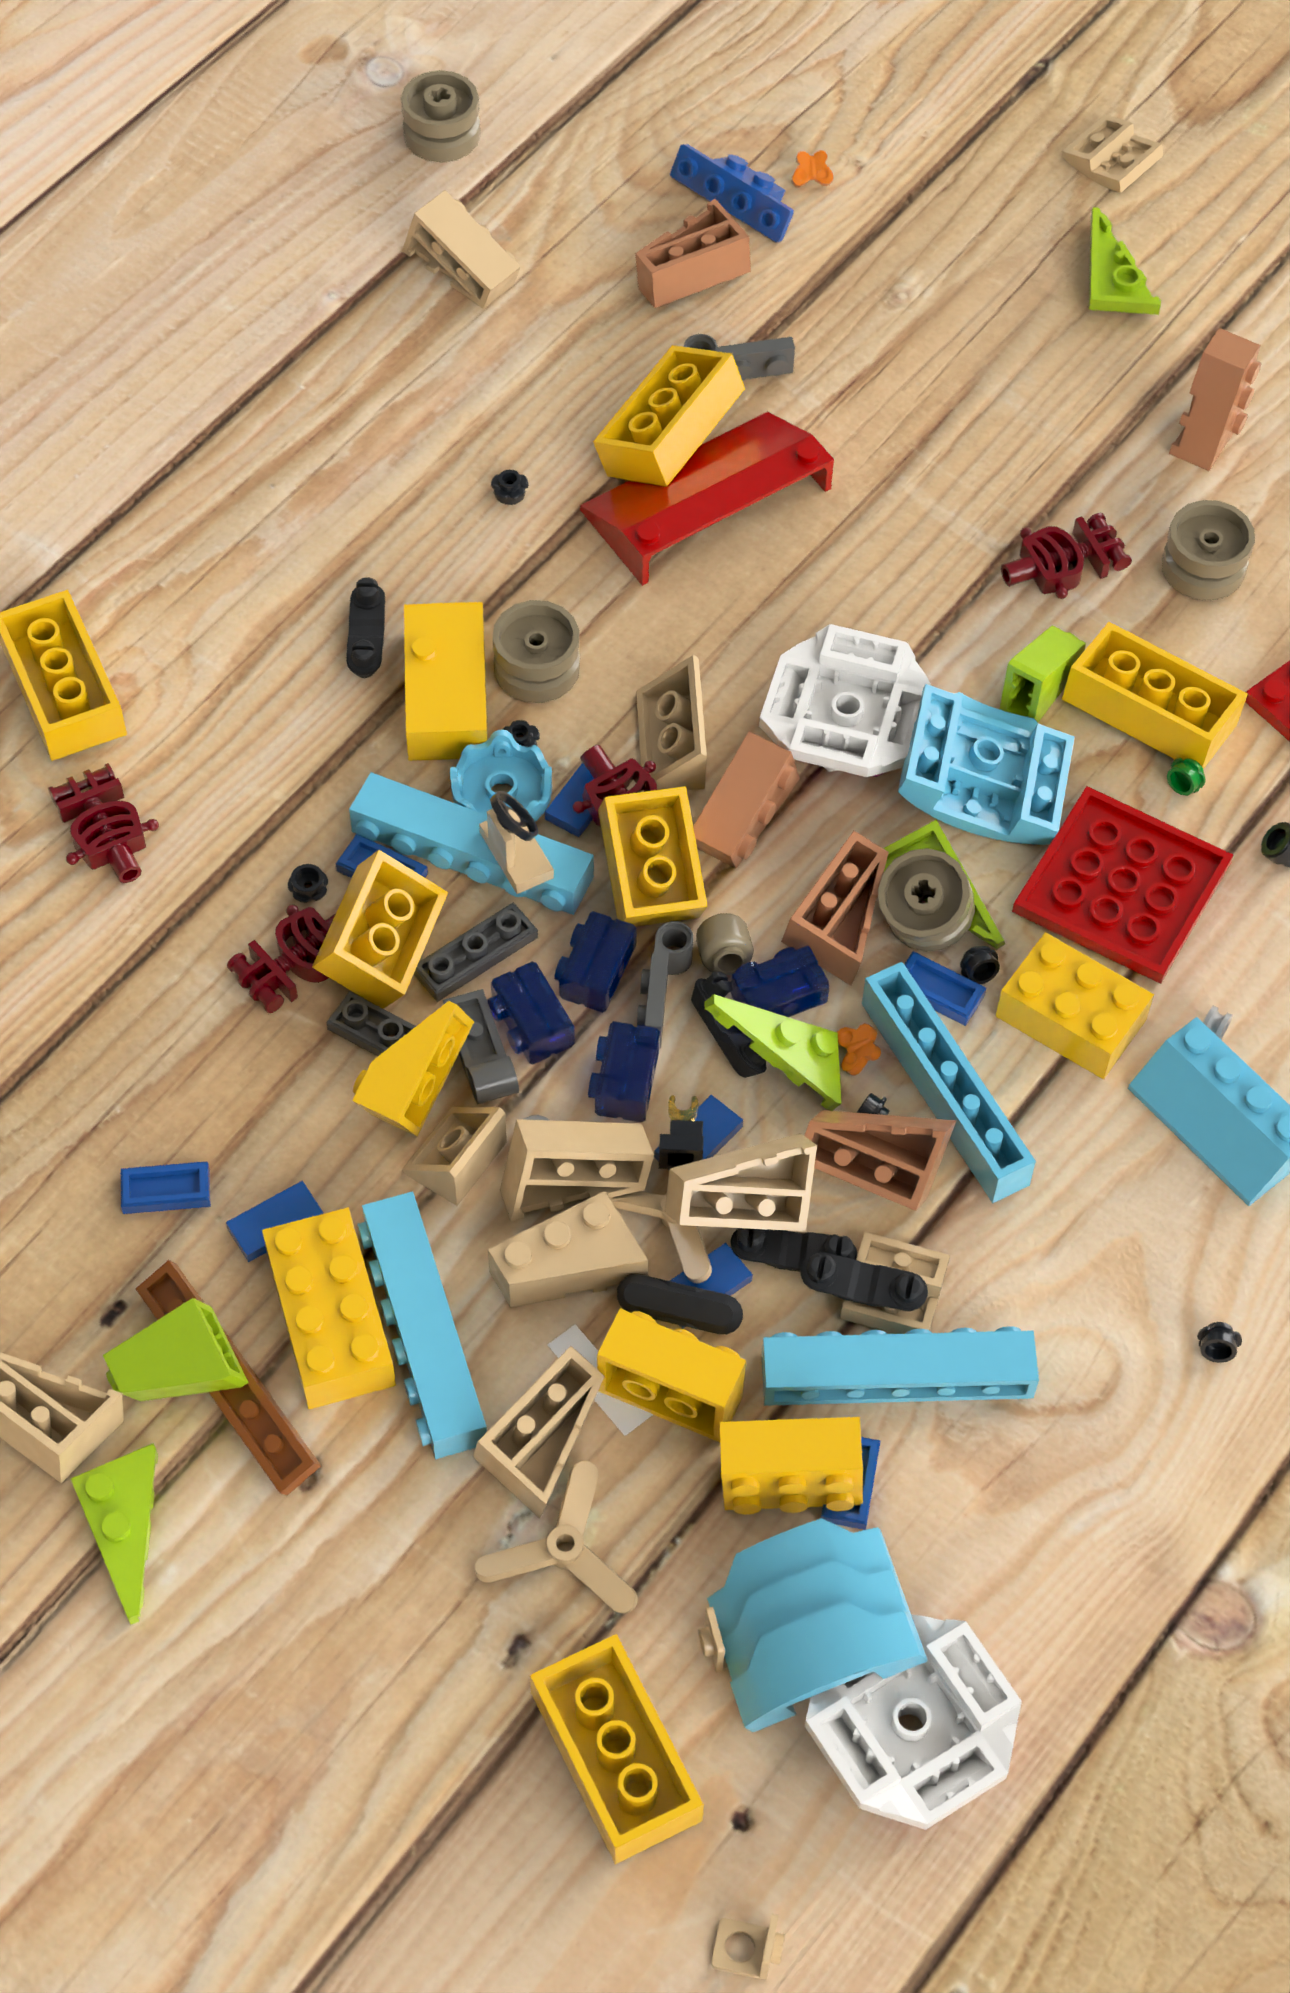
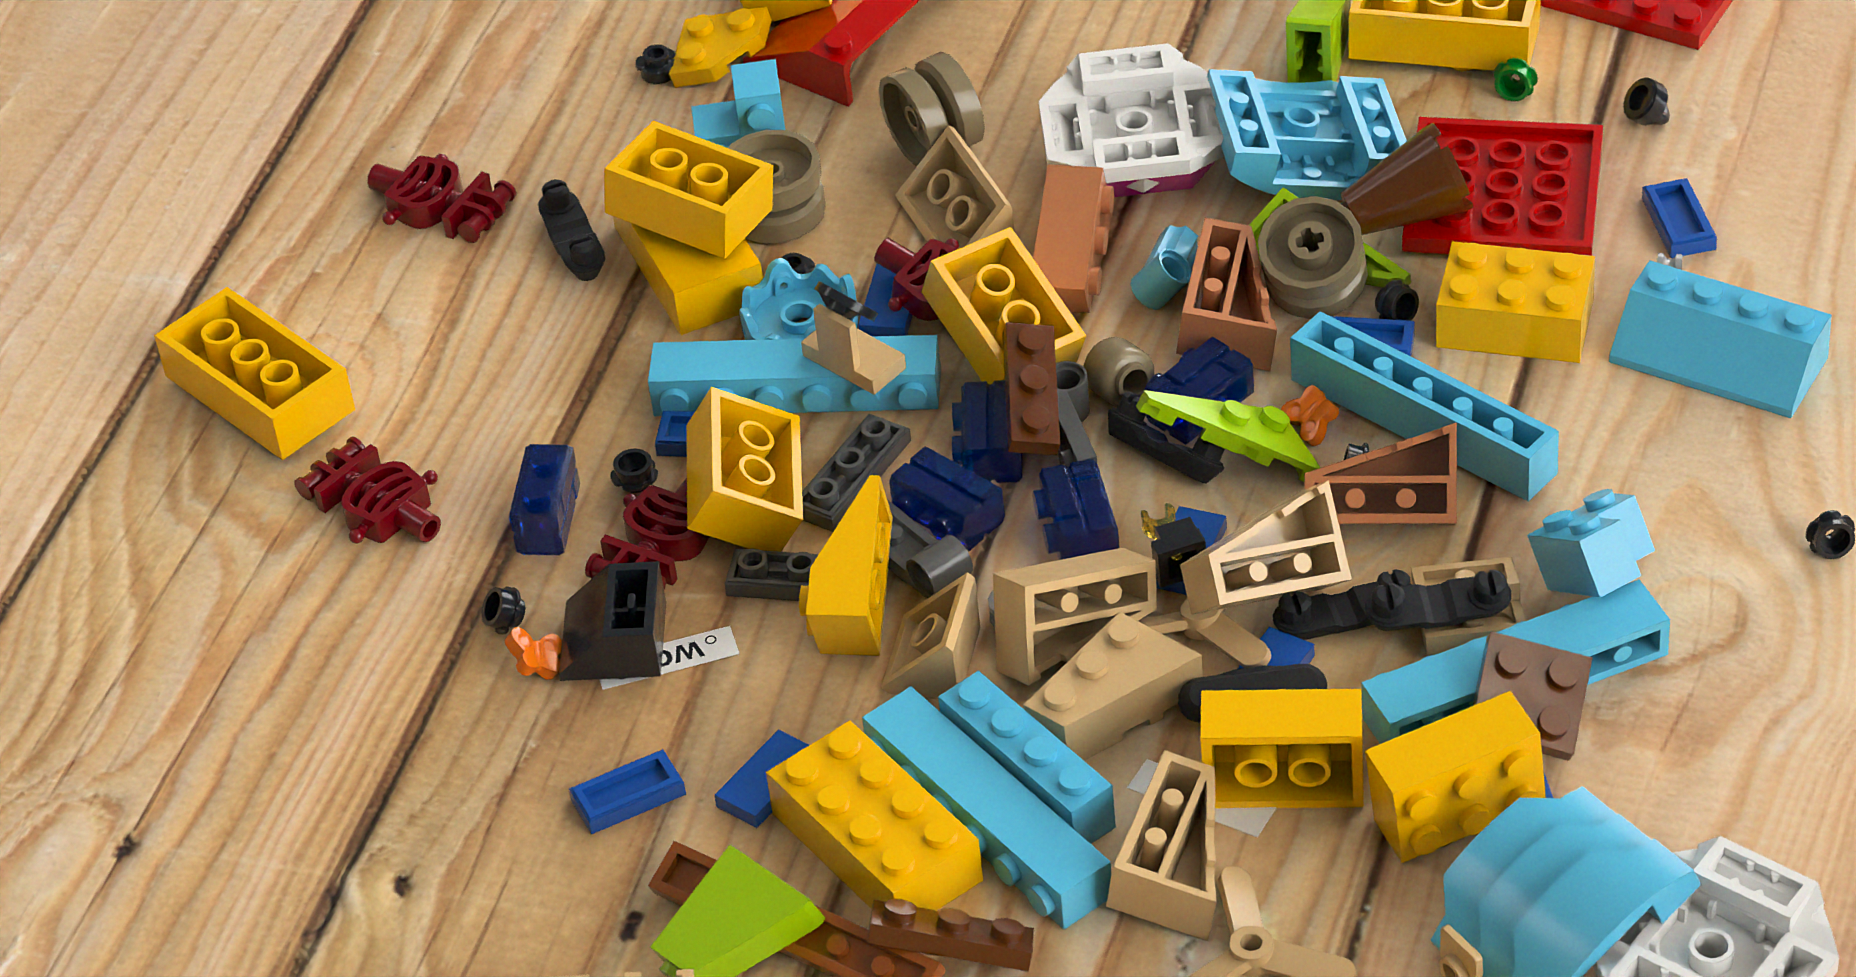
camera: 15 degrees left, 15 degrees down
(148, 977) = (503, 609): none -> black plate
(153, 1031) = (535, 655): none -> orange piece
(222, 1032) = (615, 625): none -> black slope
(224, 886) = (544, 499): none -> clear blue brick
(255, 1069) = (689, 652): none -> white sticker
(278, 549) = (434, 193): none -> dark red torso
(336, 1438) = (951, 934): none -> reddish brown plate
(452, 644) = (688, 189): none -> yellow brick
(473, 1296) = (1032, 755): none -> medium azure brick
(549, 575) = (754, 109): none -> medium azure brick
(564, 484) = (715, 41): none -> yellow plate
(636, 943) = (1031, 389): none -> reddish brown plate
(694, 626) = (926, 101): none -> dark tan wheel
(811, 855) = (1166, 268): none -> medium azure piece
(894, 1406) = (1545, 683): none -> reddish brown plate
(1012, 1279) = (1592, 546): none -> medium azure brick
(1032, 864) = (1409, 186): none -> reddish brown cone
(1254, 969) = (1679, 218): none -> blue tile

